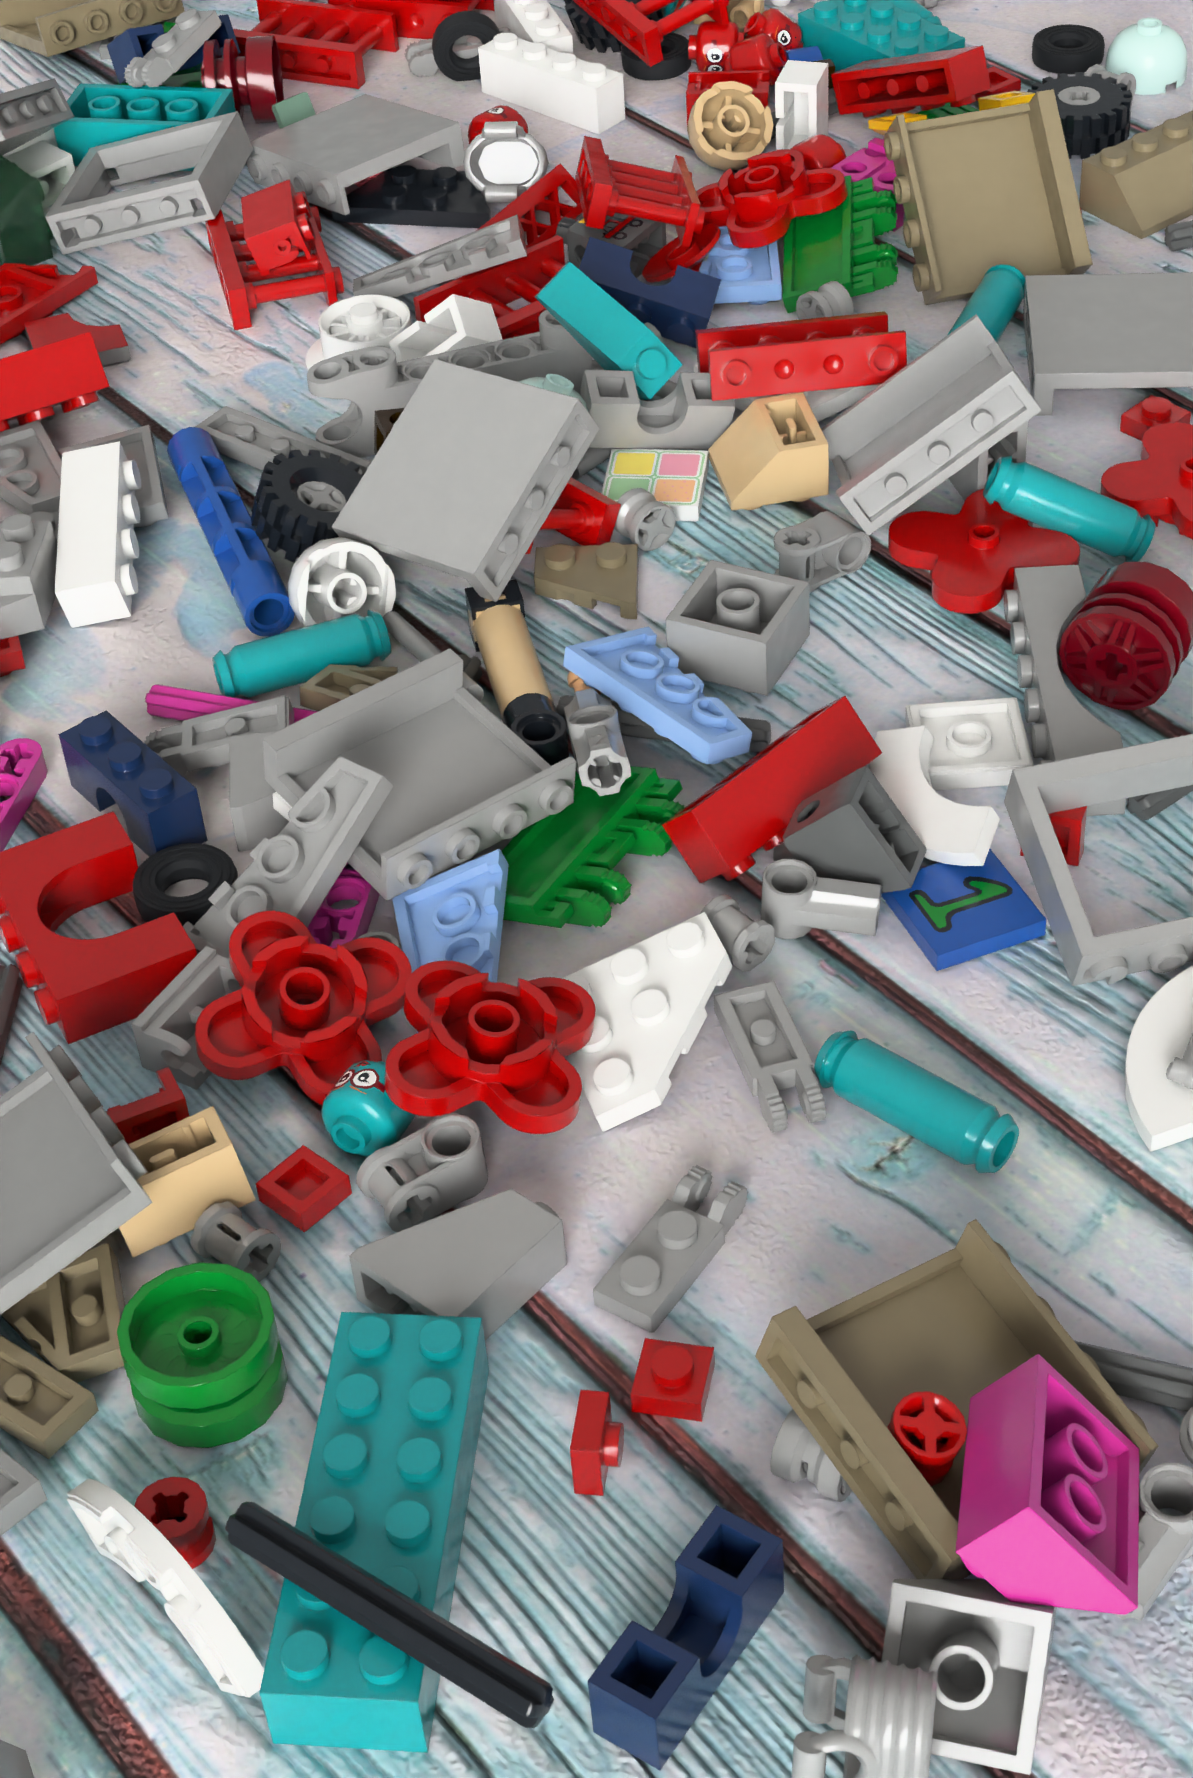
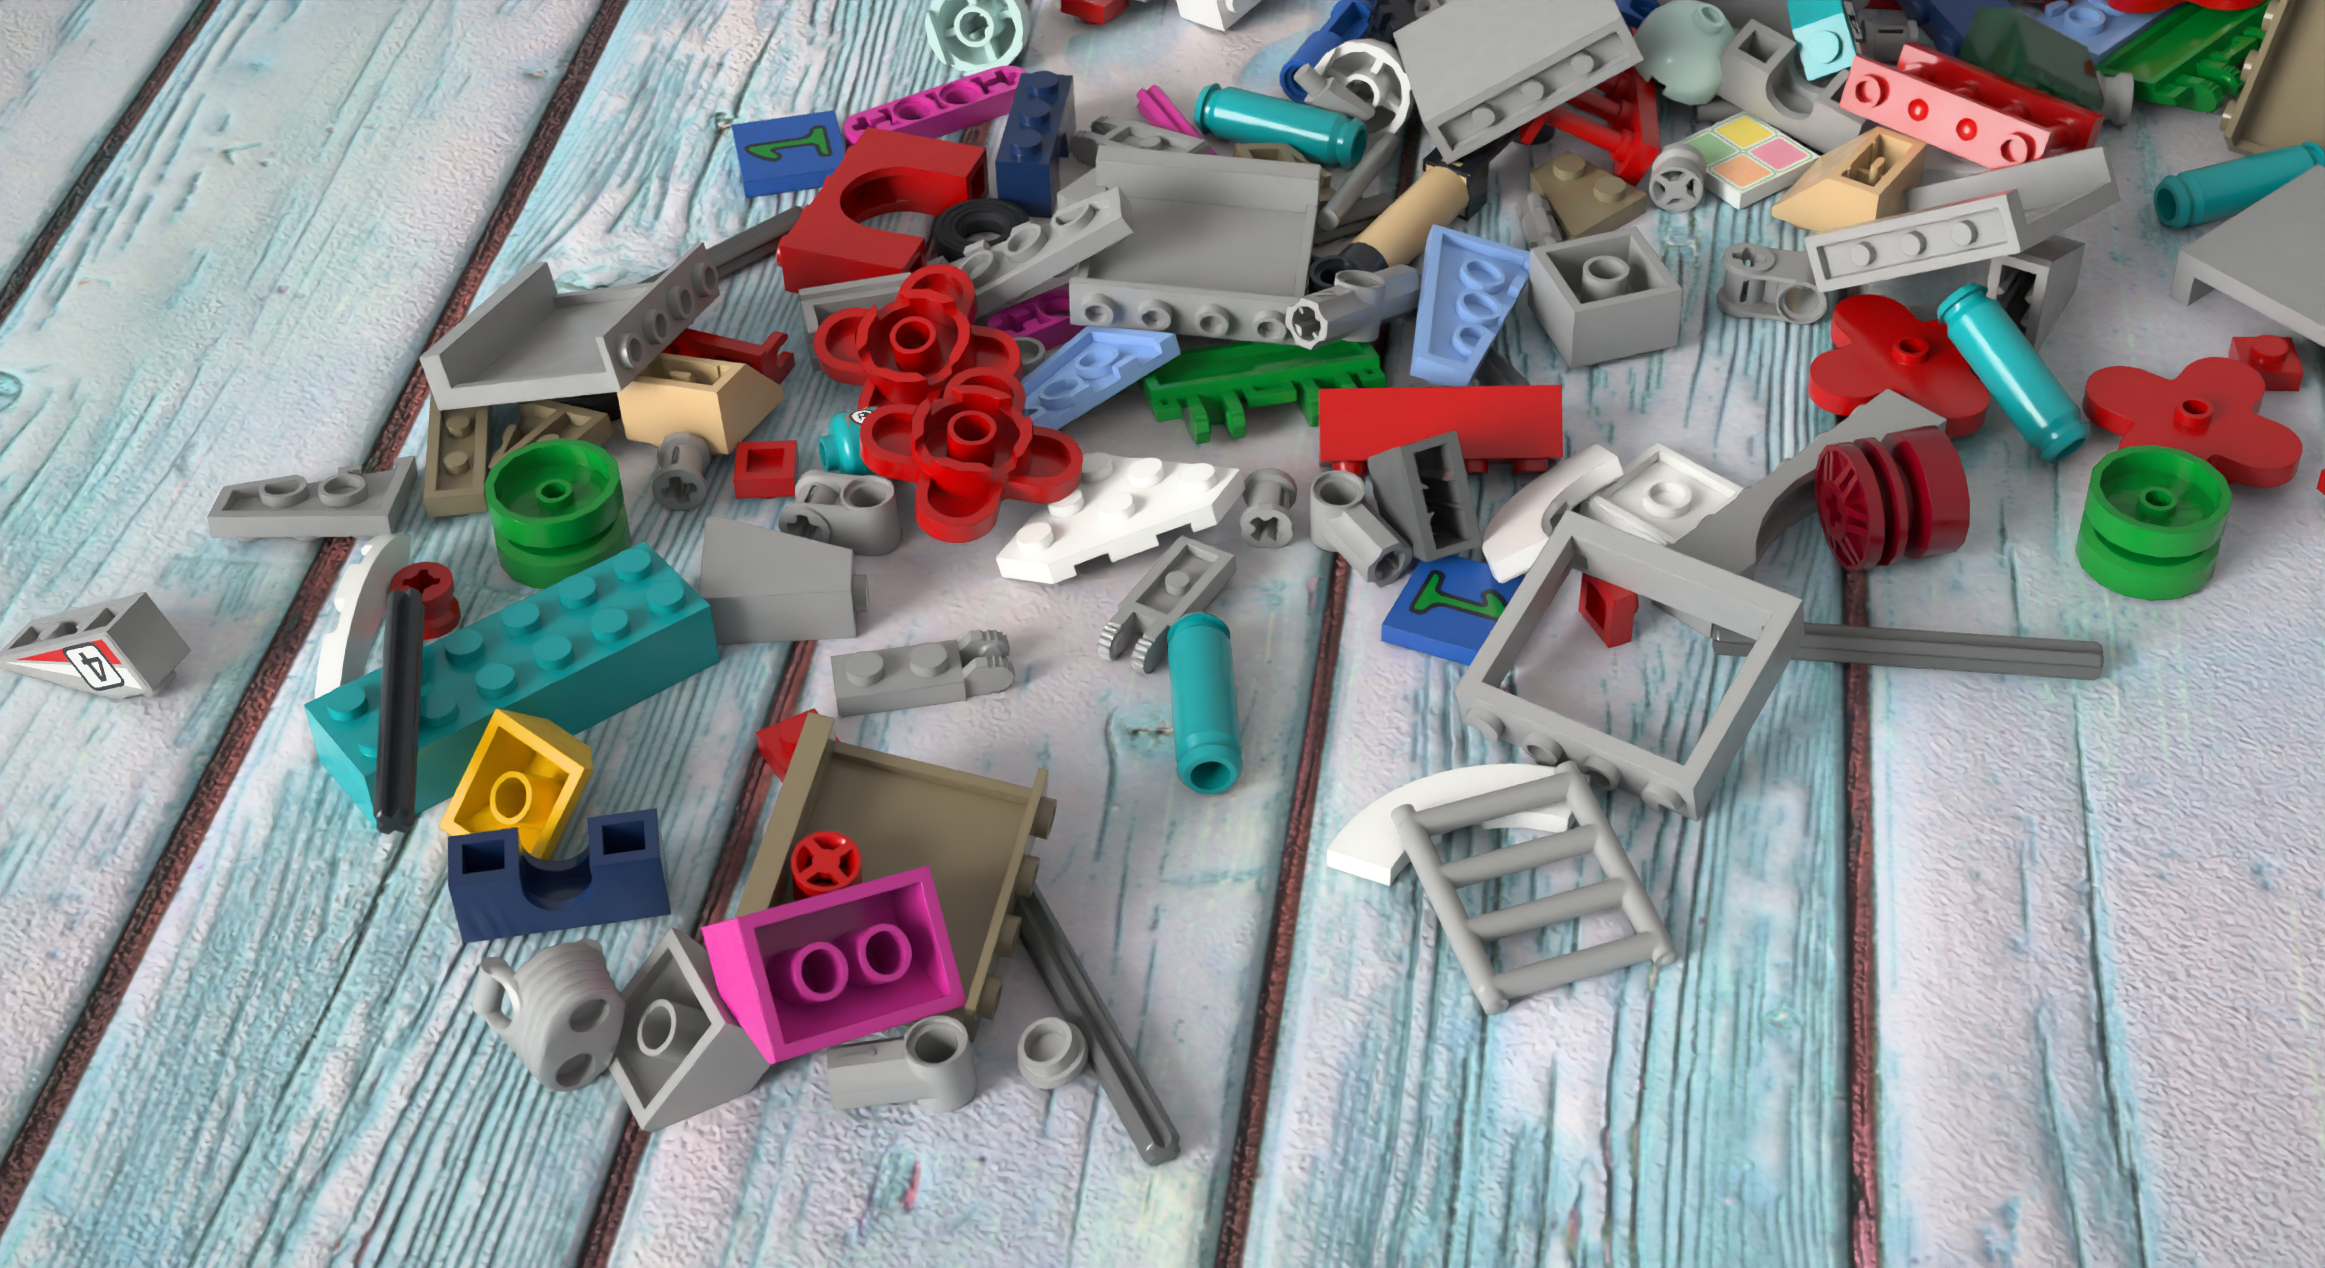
camera: 45 degrees right, 0 degrees up
(330, 604) = (1331, 94): none -> light grey bar
(547, 1593) = (521, 777): none -> yellow slope
(594, 1443) = (688, 737): red plate -> none
(600, 612) = (1537, 221): none -> light grey axle
(769, 297) = (2032, 55): none -> clear green slope

